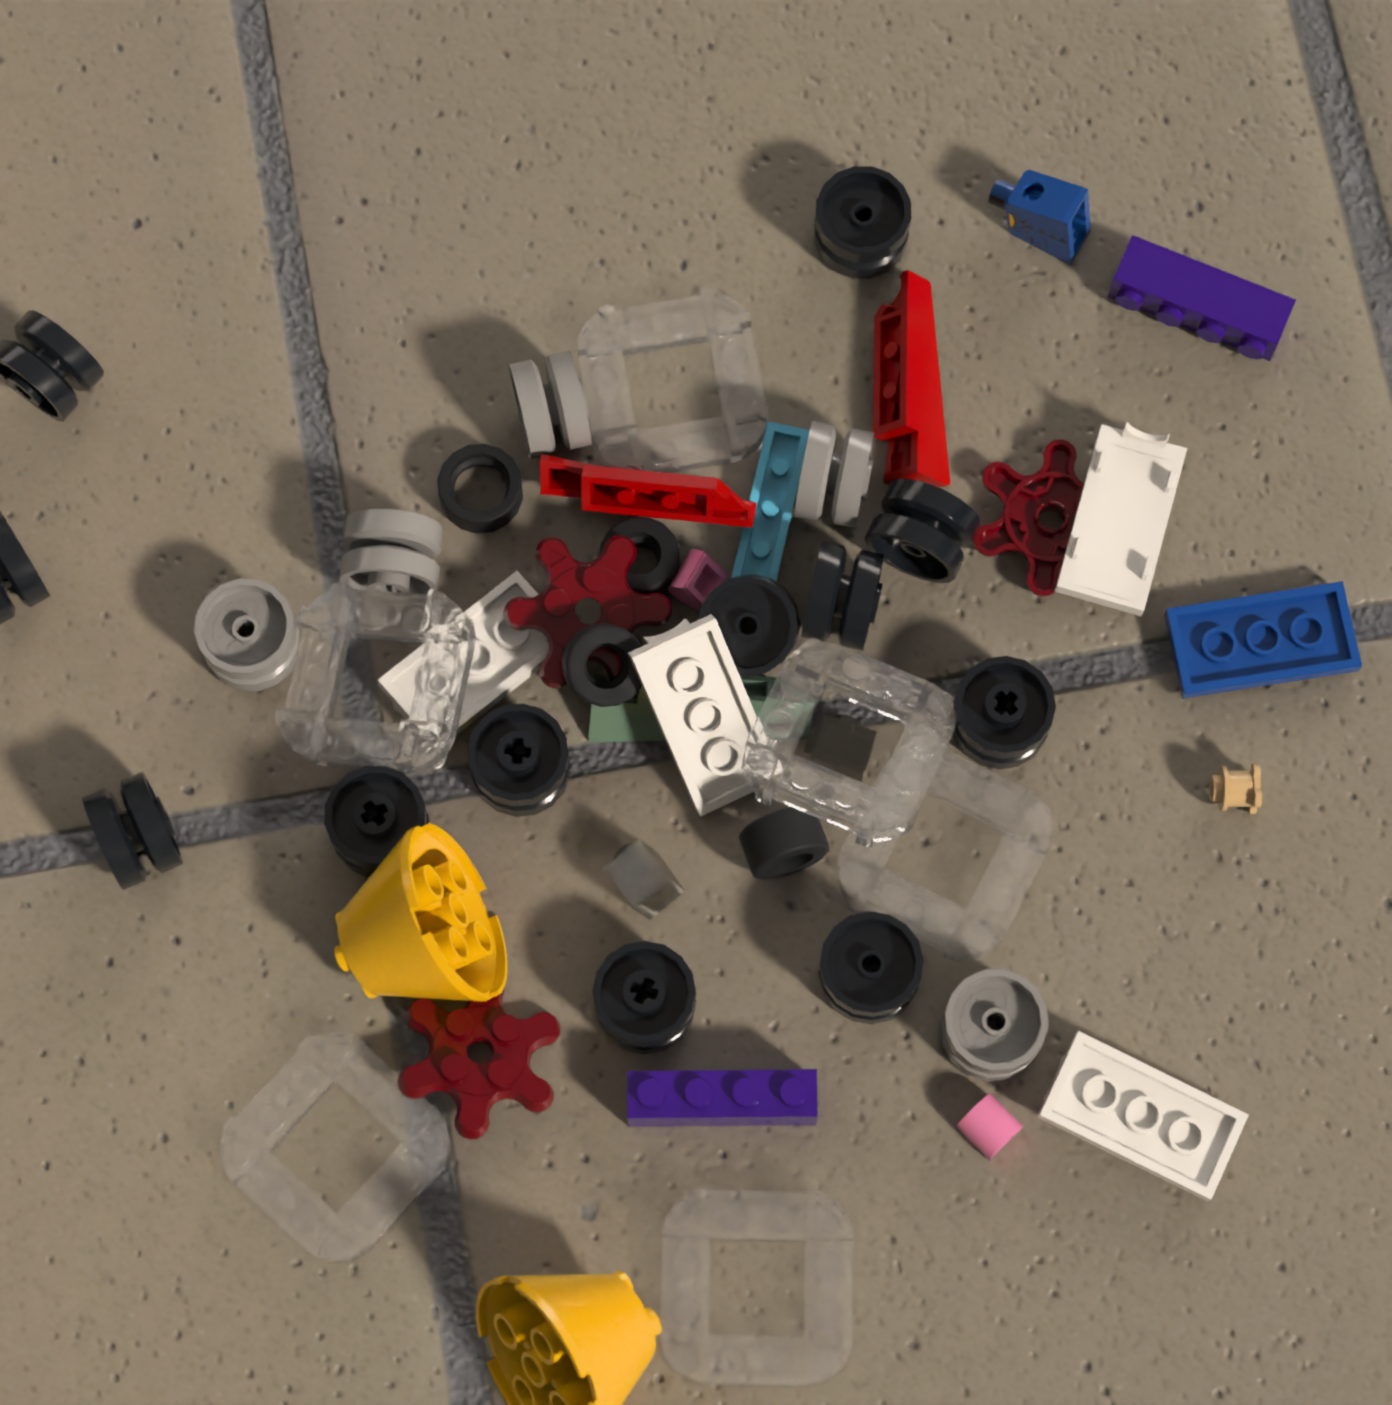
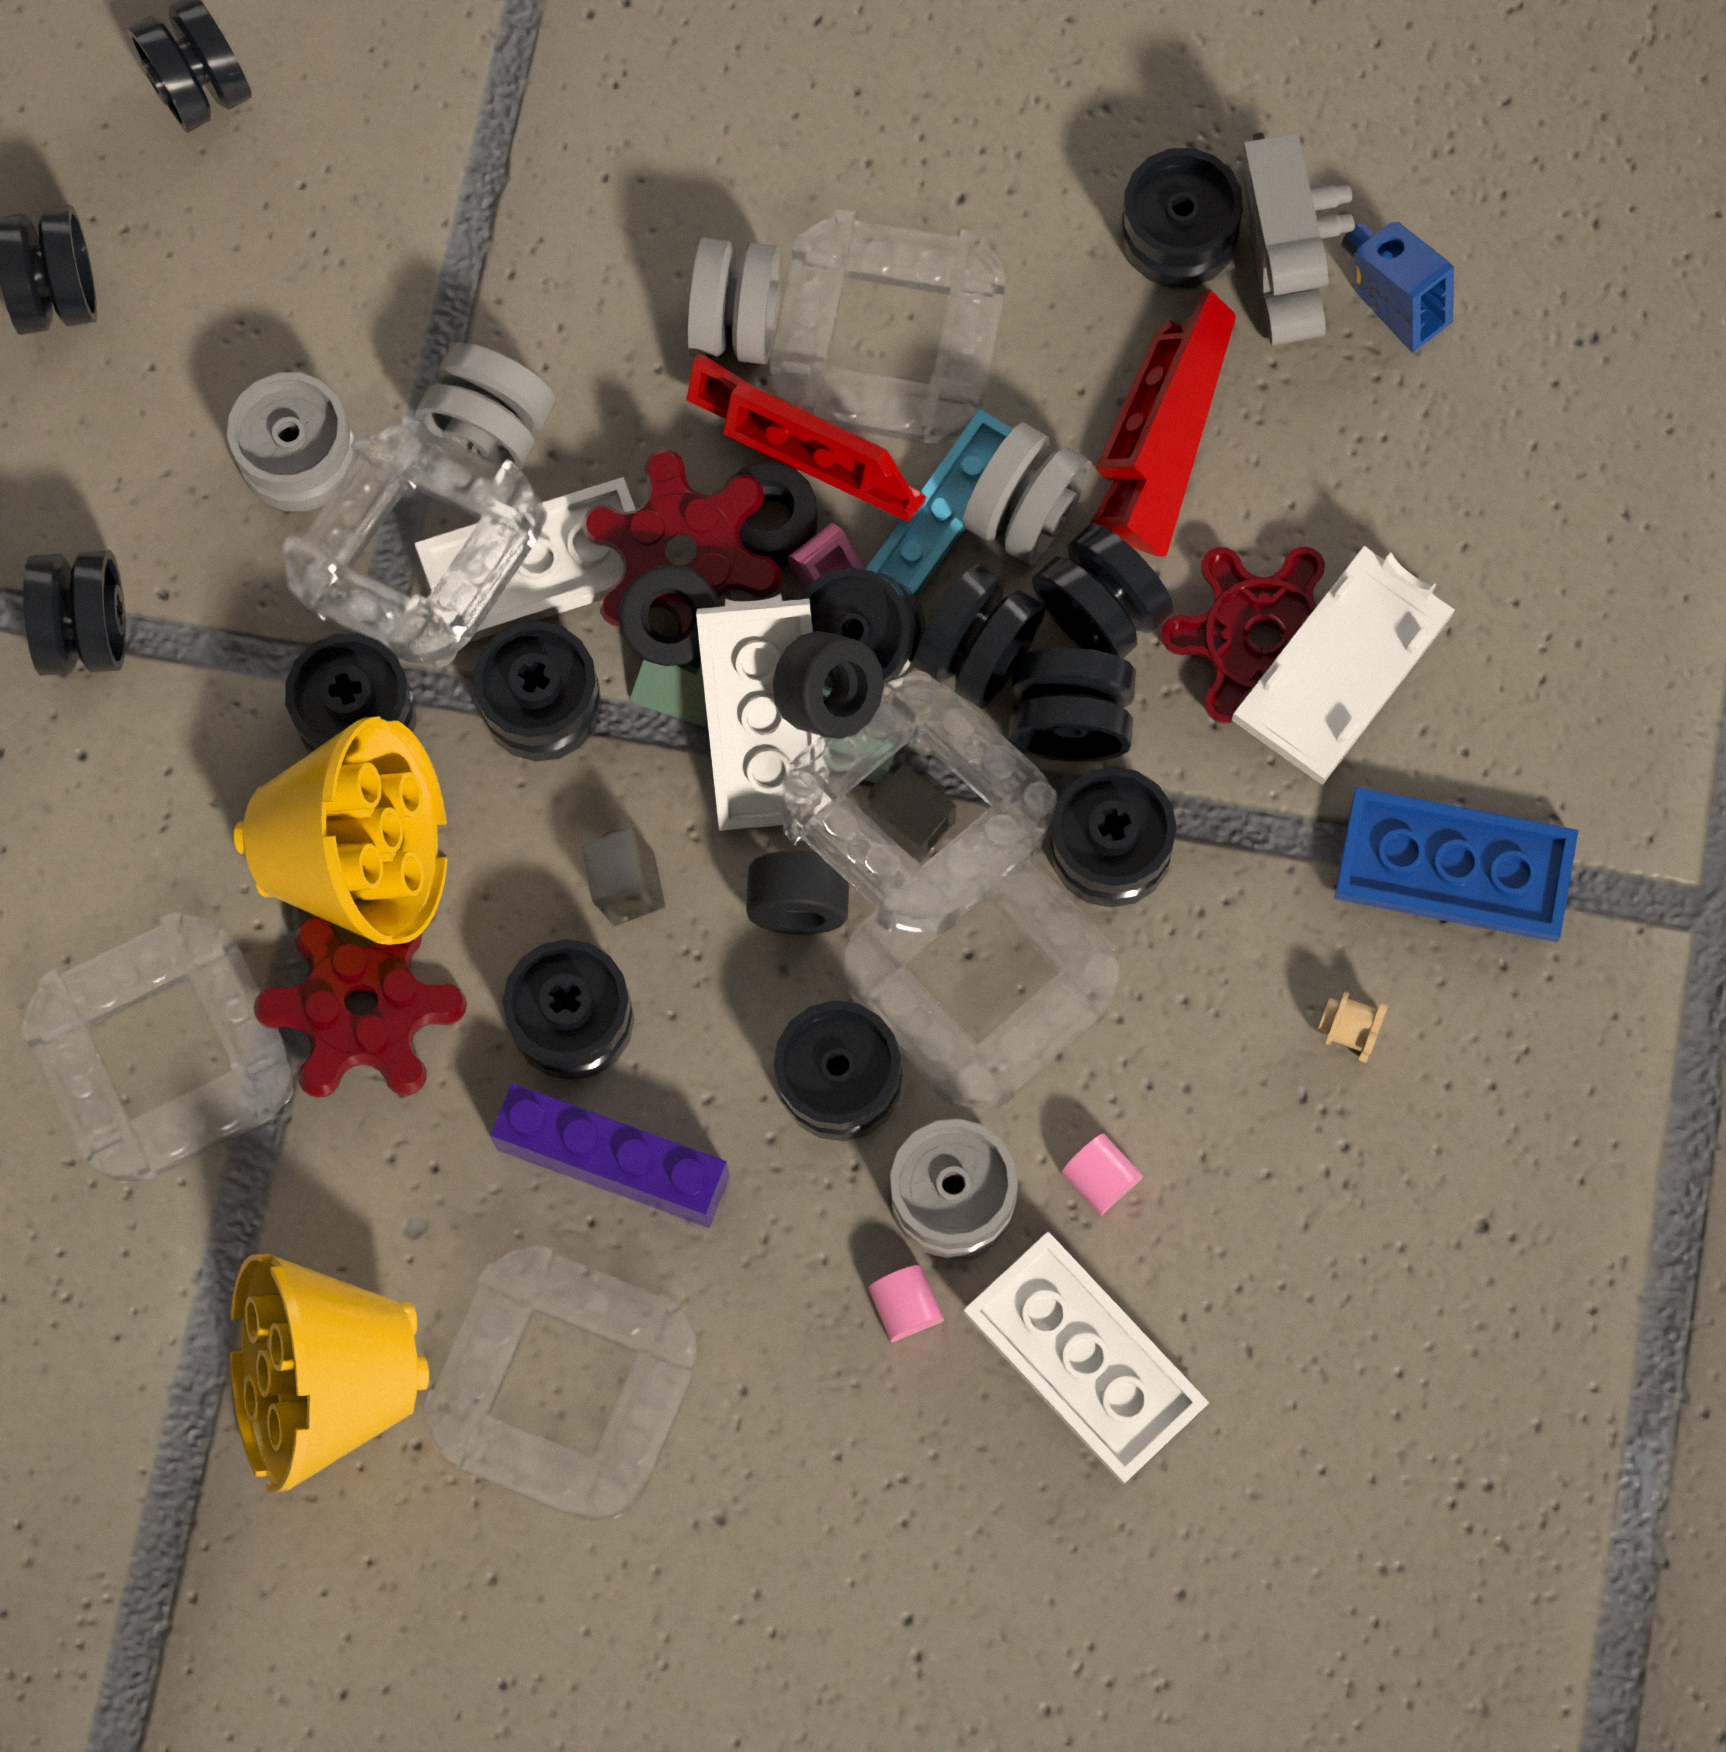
camera: 25 degrees right, 0 degrees up
(476, 456) = (619, 332): black tyre -> none
(752, 675) = (801, 679): none -> black tyre
(934, 623) = (1072, 705): none -> black wheel
(951, 207) = (1289, 236): none -> light grey piece
(1096, 972) = (1101, 1173): none -> bright pink brick
(1200, 299) = (1547, 444): dark purple brick -> none

